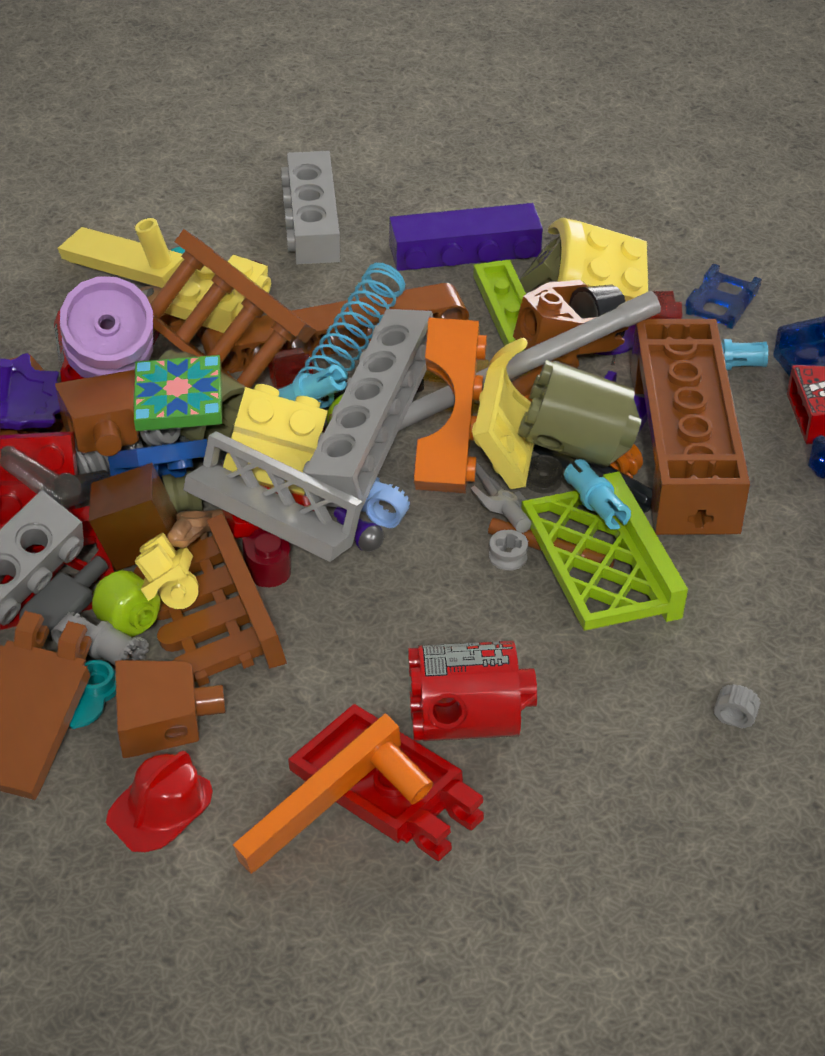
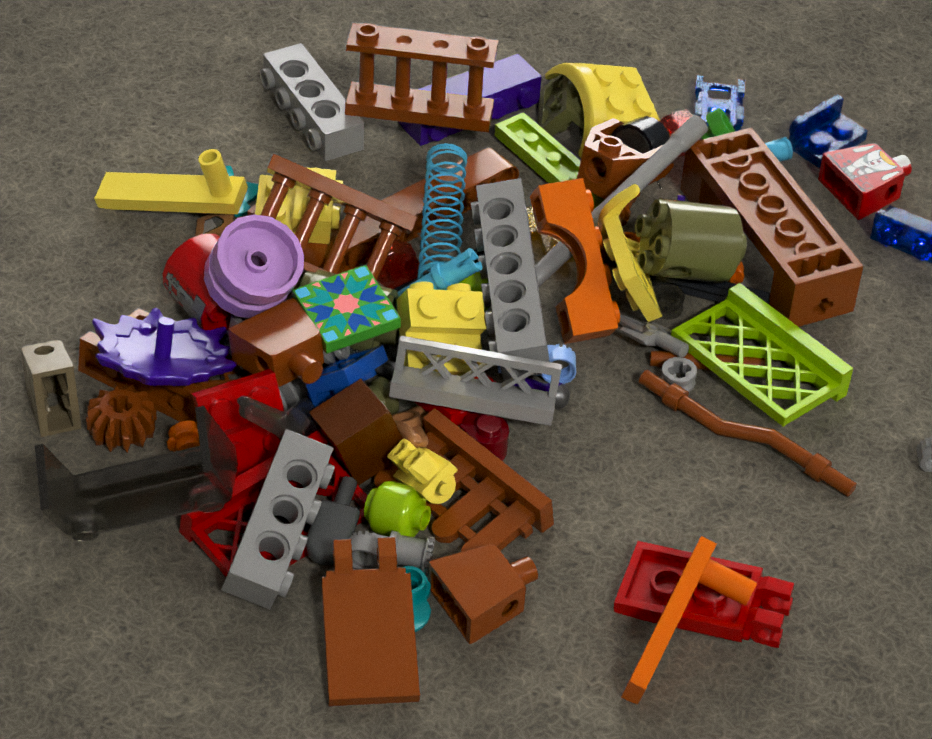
camera: 25 degrees left, 0 degrees up
(159, 802) = (528, 670): red piece -> none
(391, 226) = (417, 105): none -> dark orange fence
(468, 691) = (734, 500): red cylinder -> none
(594, 680) = (815, 465): none -> dark orange bar
(597, 494) = (735, 307): medium azure pin -> none
(706, 309) = (718, 124): none -> bright green tile

